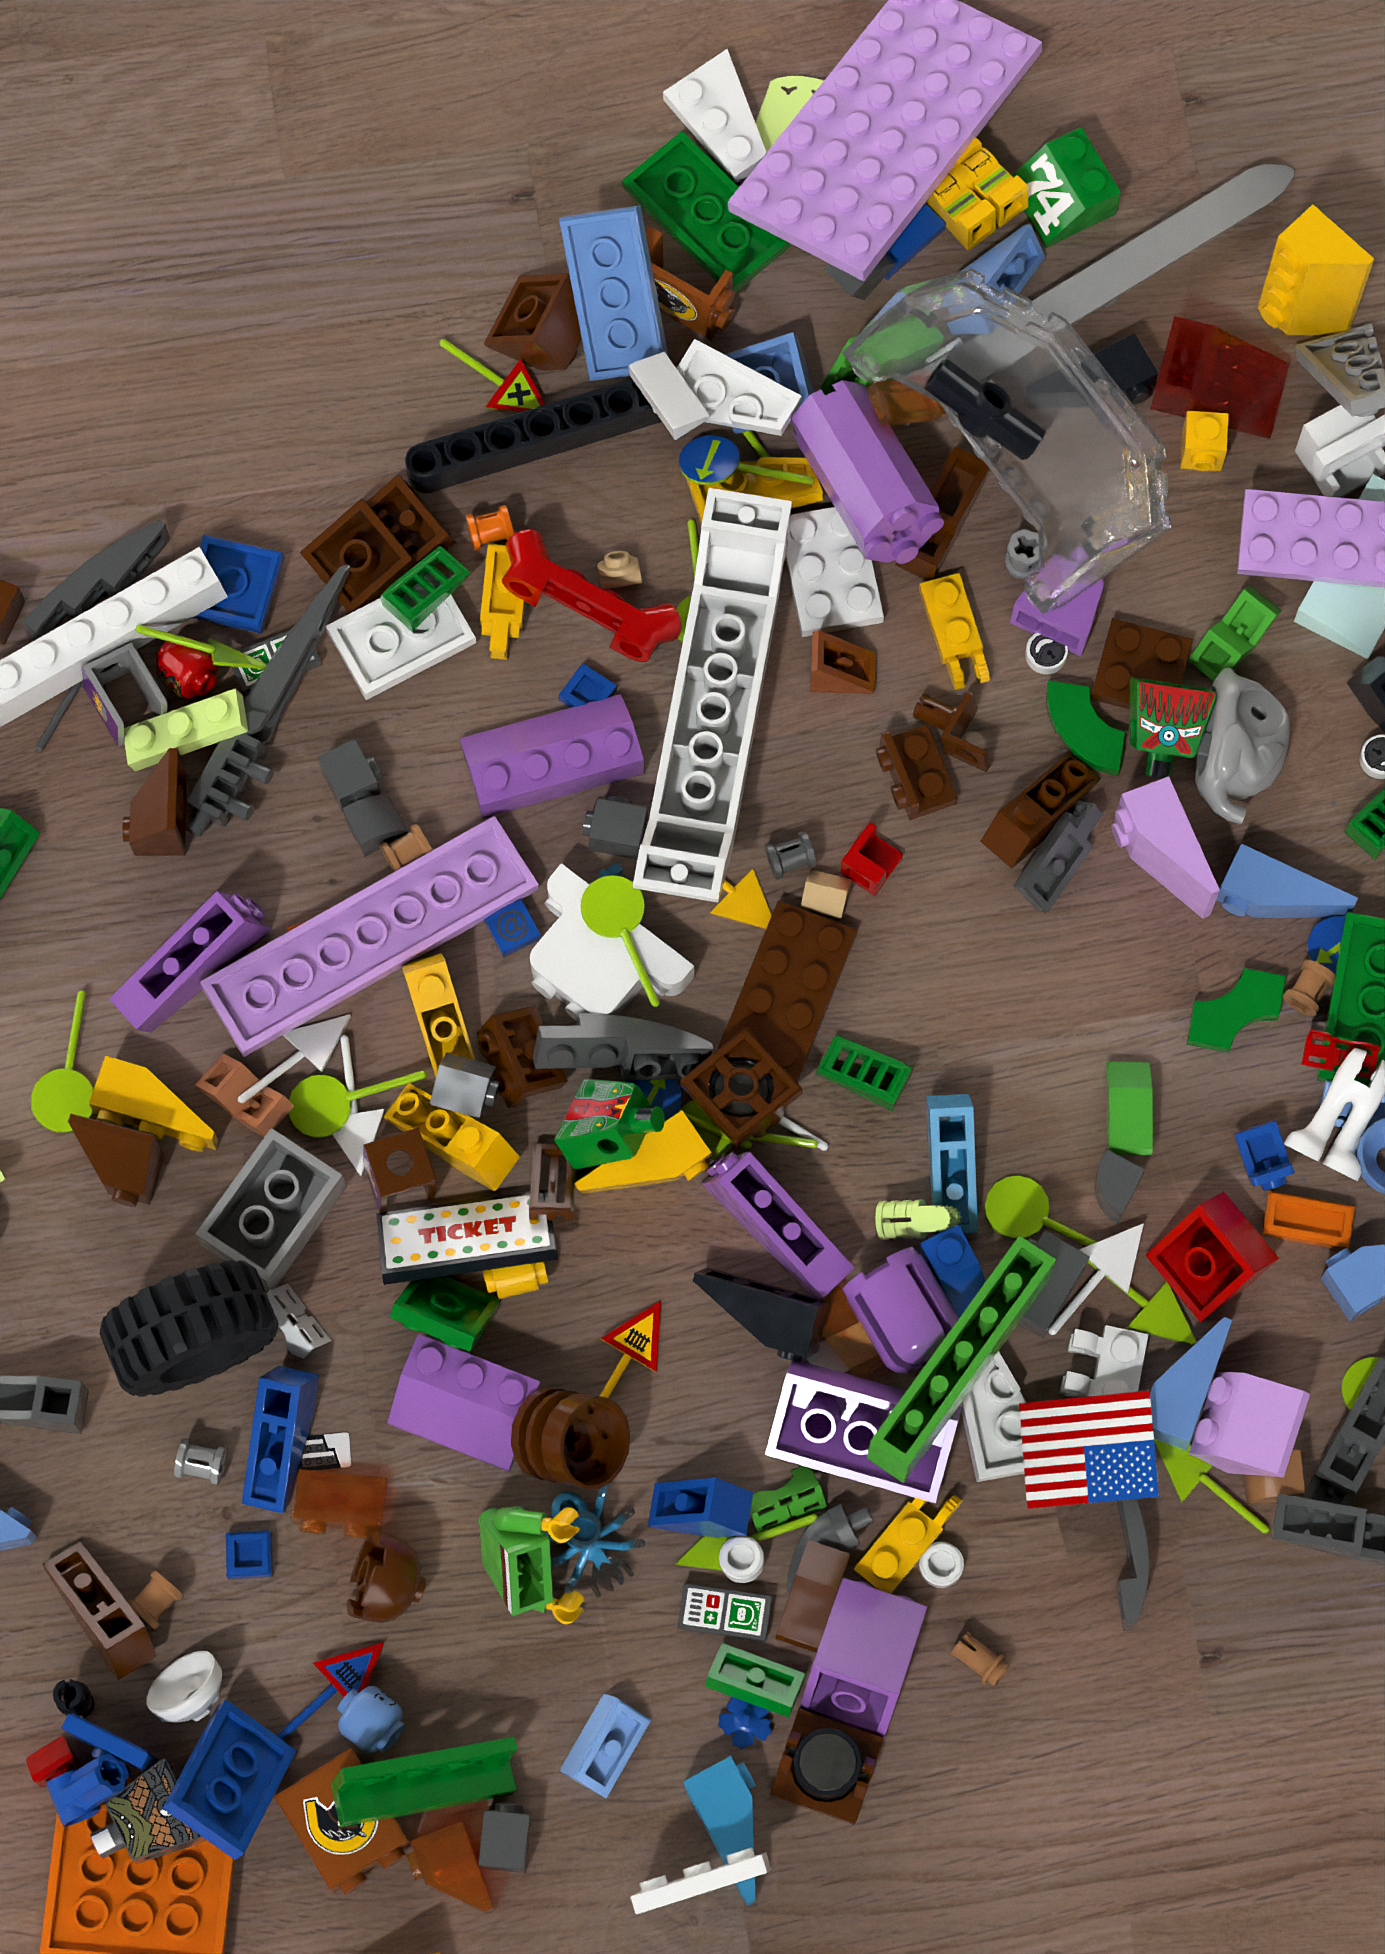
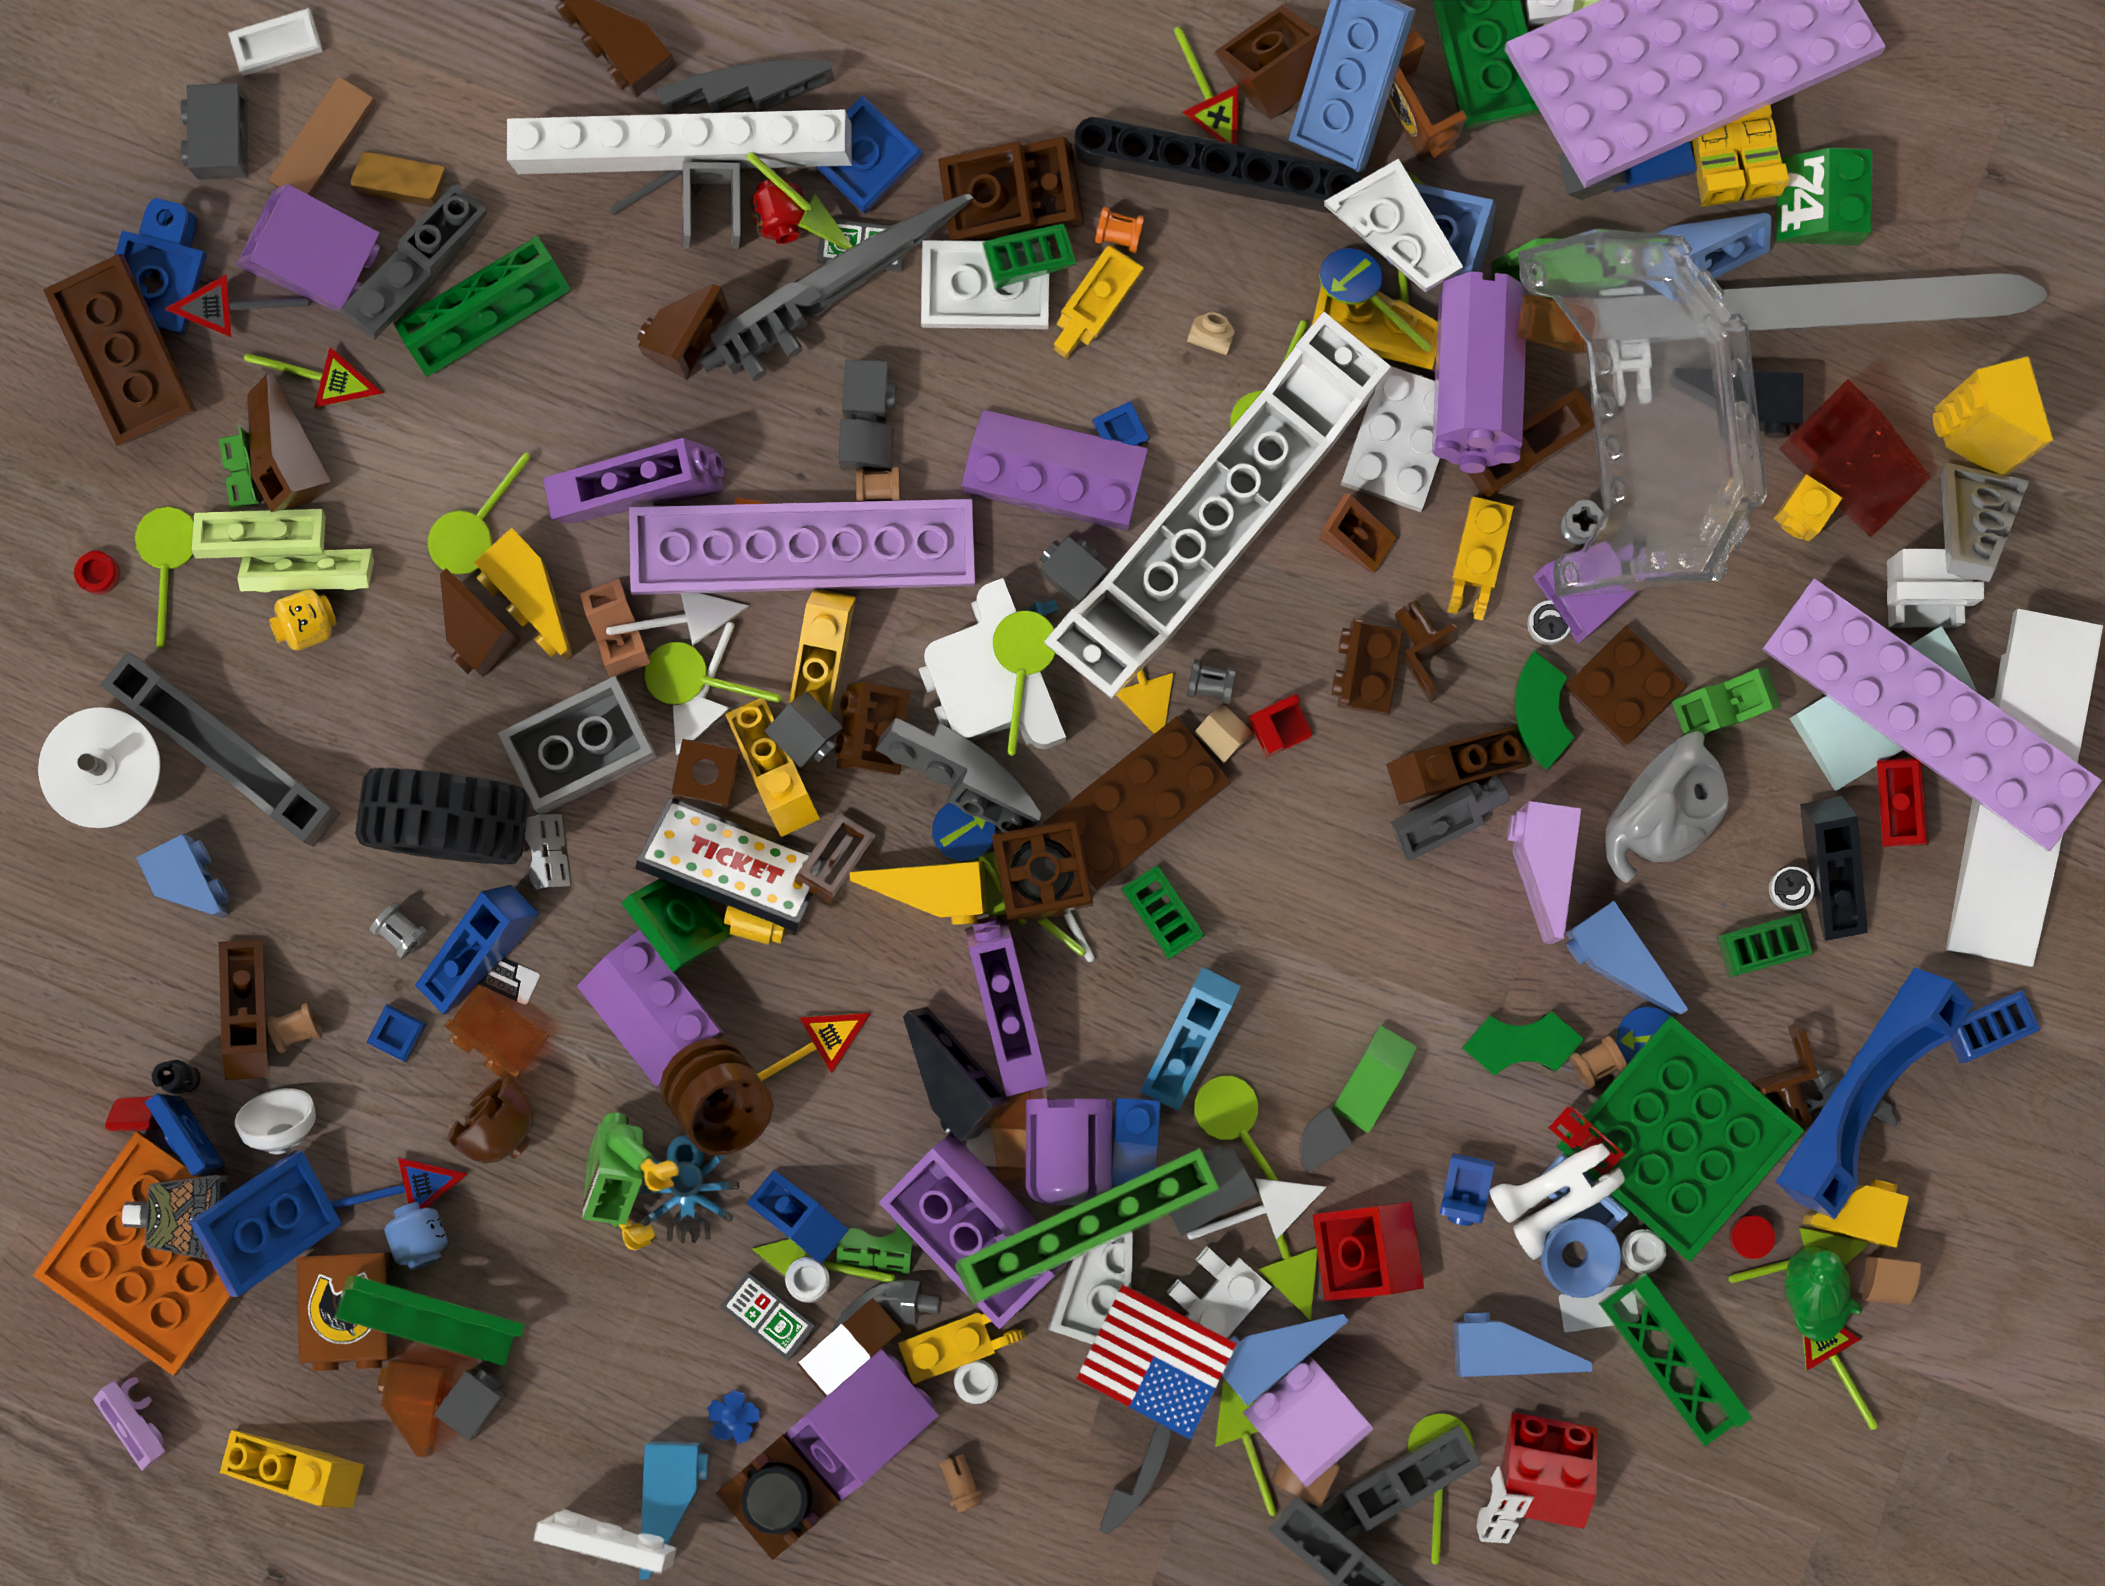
camera: 30 degrees right, 10 degrees up
(84, 1789) = (142, 1162): blue piece -> none
(185, 729) = (745, 268): yellowish green plate -> none
(512, 928) = (931, 608): blue tile -> none
(605, 1745) = (602, 1369): light blue slope -> none
(606, 1123) = (907, 836): green torso -> none
(635, 629) = (1129, 298): red plate -> none
(668, 394) = (1344, 198): white slope -> none
(755, 1680) = (758, 1390): green plate -> none
(923, 1219) = (1127, 1070): yellowish green hinge -> none
(984, 409) = (1620, 372): black piece -> none
(1167, 721) = (1617, 750): torso -> none
(1308, 1220) = (1472, 1266): orange tile -> none

